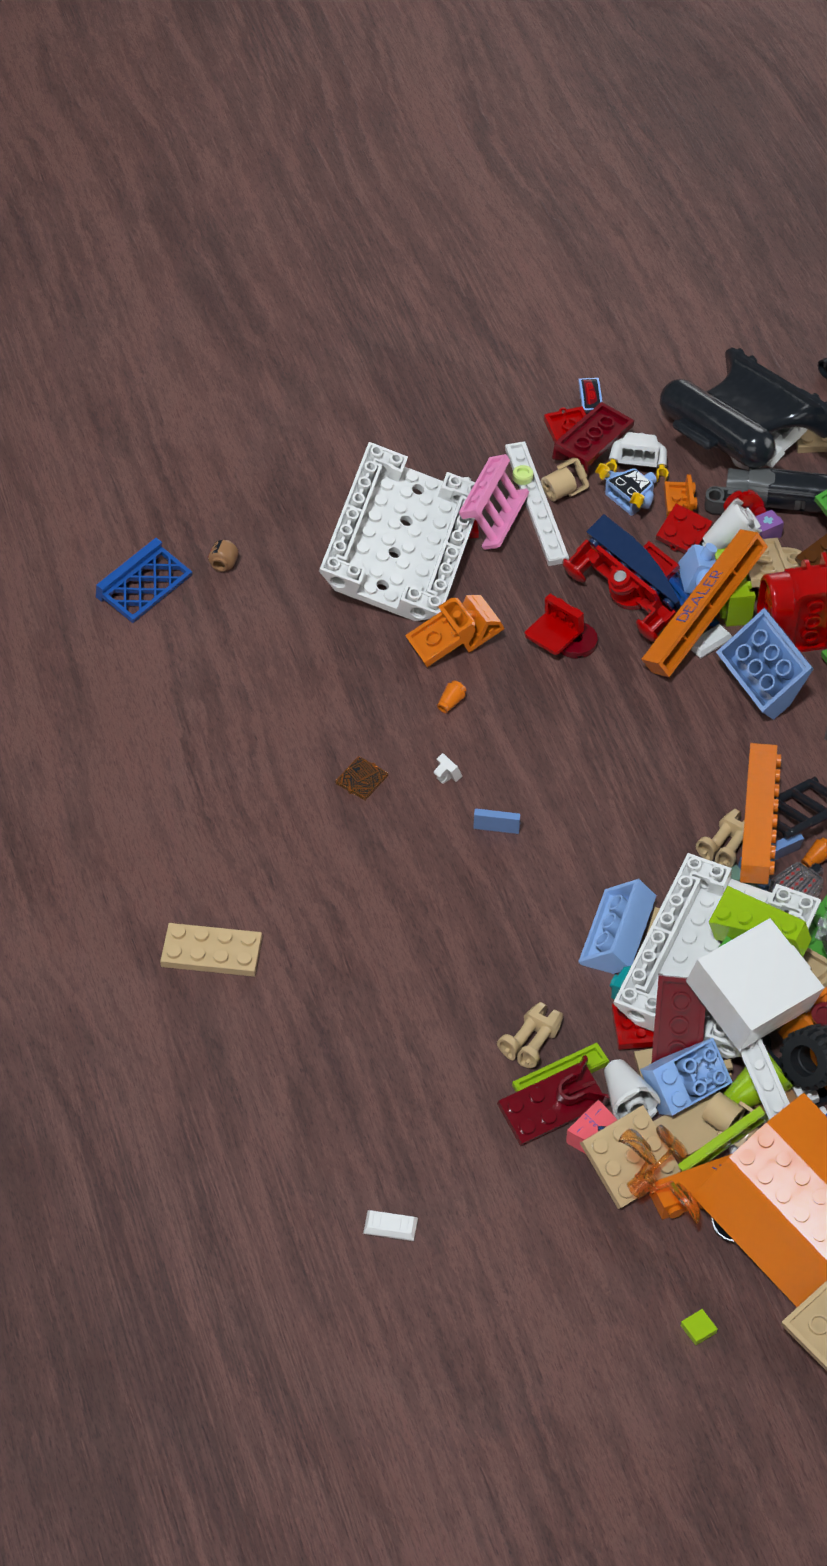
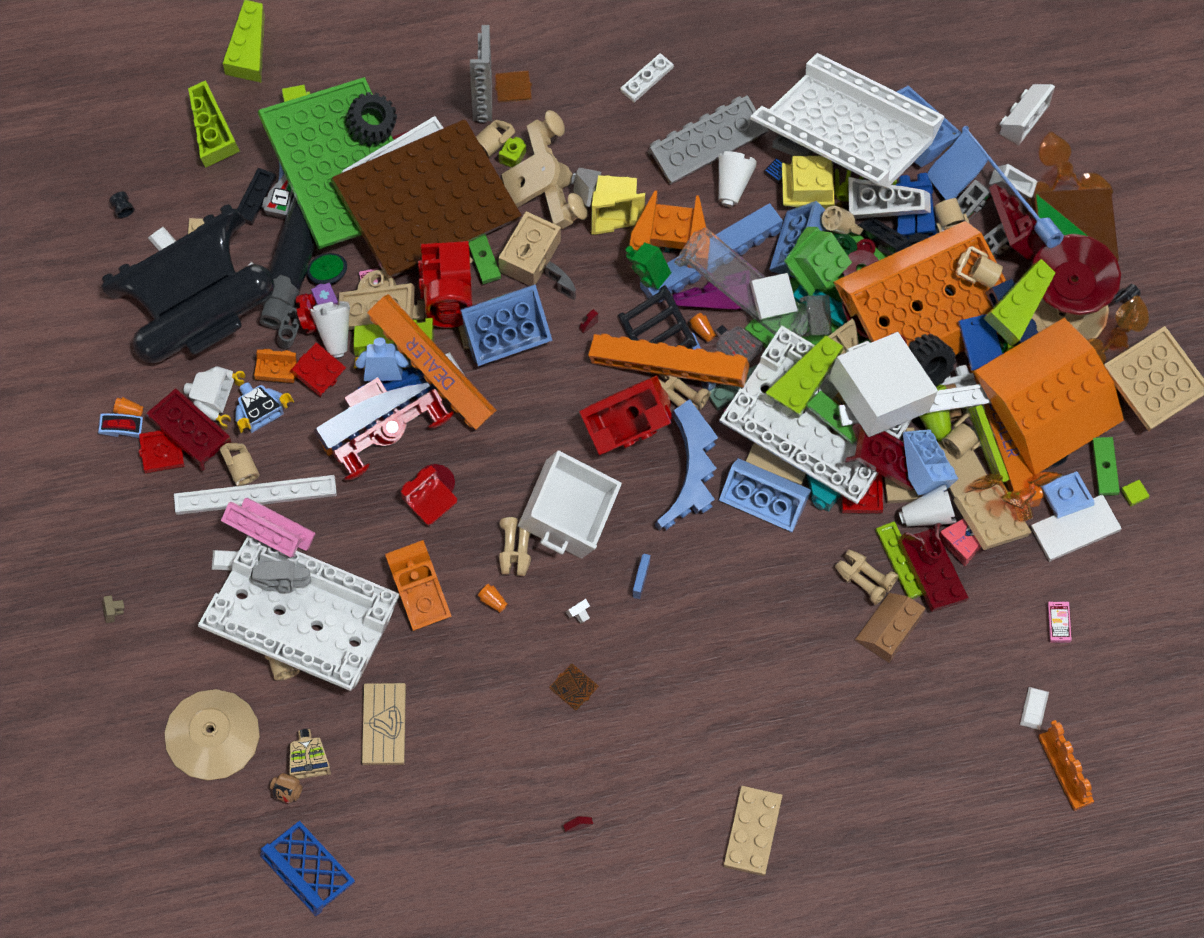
camera: 85 degrees left, 15 degrees up
(206, 792) = (578, 823): none -> dark red tile
(258, 568) = (308, 757): none -> torso
(276, 500) = (215, 753): none -> tan dish
(301, 626) = (384, 724): none -> tan tile
(314, 1256) = (1066, 767): none -> orange fence
(394, 409) = (112, 608): none -> dark tan tile
(438, 510) = (280, 576): none -> light grey hinge
(471, 1065) = (891, 625): none -> medium nougat slope
(497, 710) = (507, 557): none -> tan piece
(506, 1246) = (1059, 622): none -> tile
(522, 475) = (222, 499): yellowish green tile -> none
(561, 736) = (569, 505): none -> white container
(610, 393) = (127, 407): none -> orange cone
(635, 856) = (696, 437): none -> medium blue arch
(637, 1260) = (1075, 530): none -> white tile
(679, 1245) = (1067, 495): none -> light blue tile
(683, 780) = (614, 424): none -> red brick
(741, 1285) = (1105, 456): none -> bright green tile
(798, 750) = (590, 322): none -> dark red tile
(803, 526) = (327, 268): none -> green wheel

